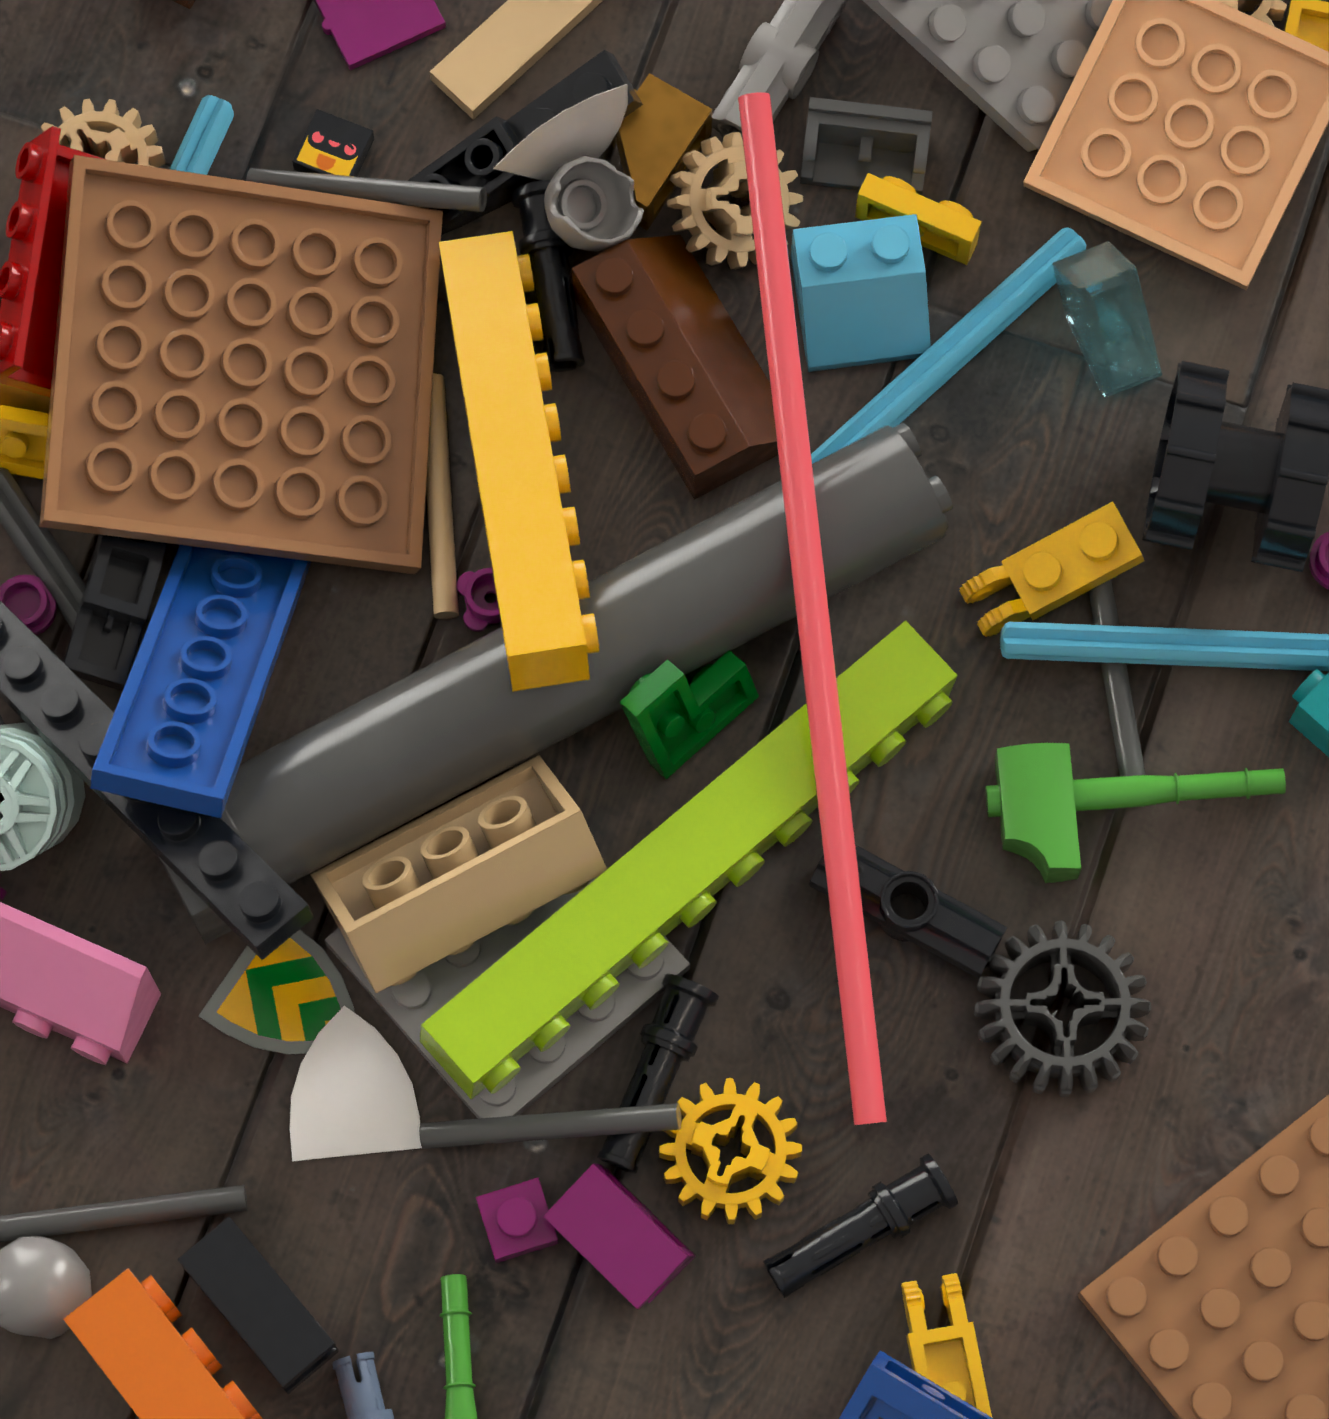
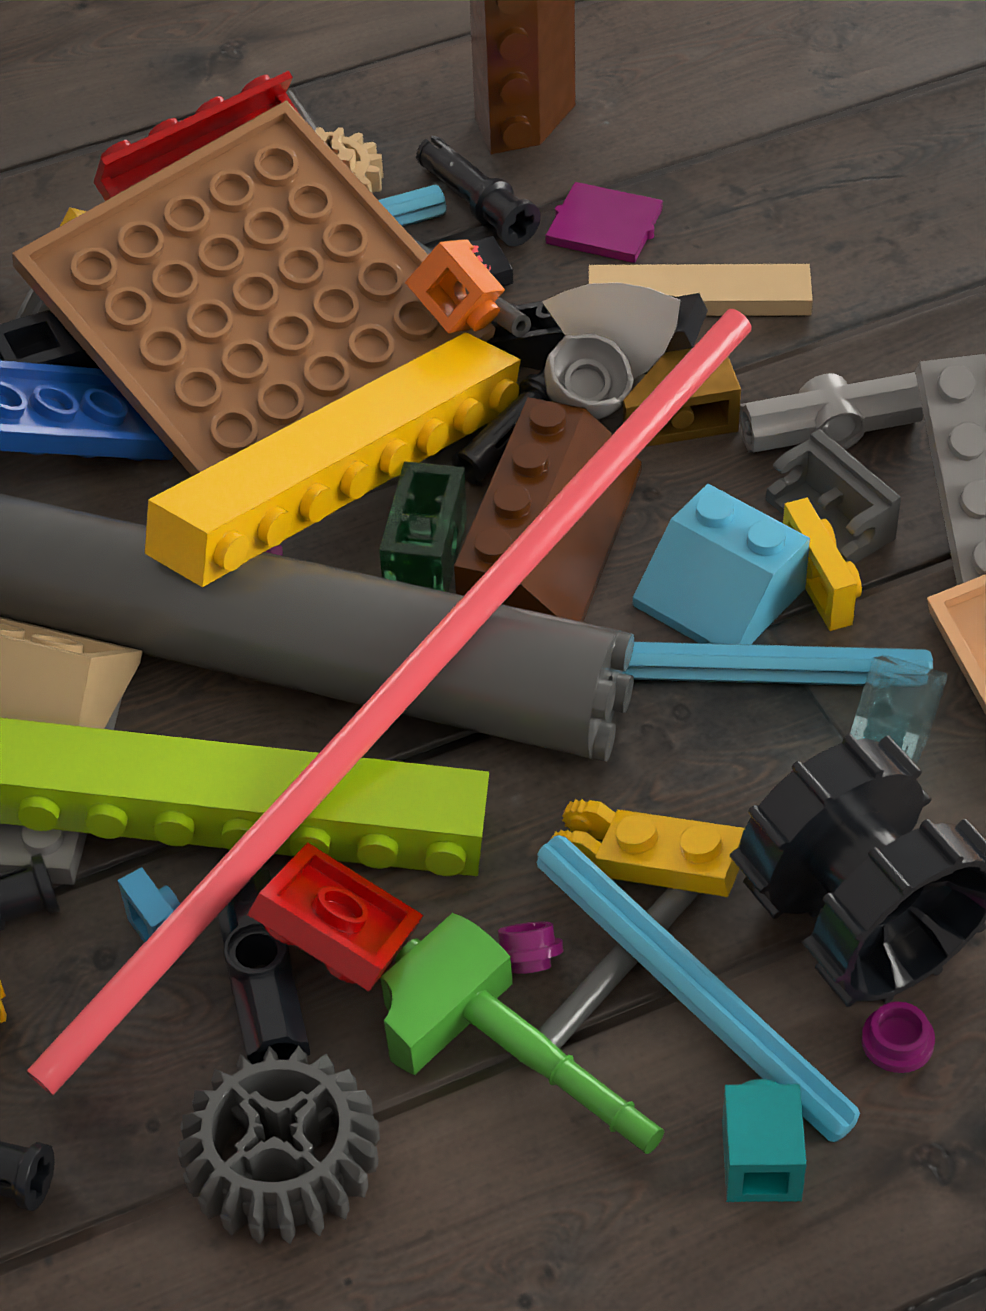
camera: 50 degrees right, 25 degrees down
(270, 71) = (489, 198): none -> black pin
(406, 213) = (442, 284): none -> orange brick
(622, 461) = (425, 526): none -> clear green brick
(680, 718) = (252, 706): green plate -> none
(732, 224) = (693, 431): tan gear -> none
(793, 939) = (145, 903): none -> dark azure plate
(933, 825) = (335, 916): none -> red plate
(1055, 718) = (530, 946): none -> magenta plate

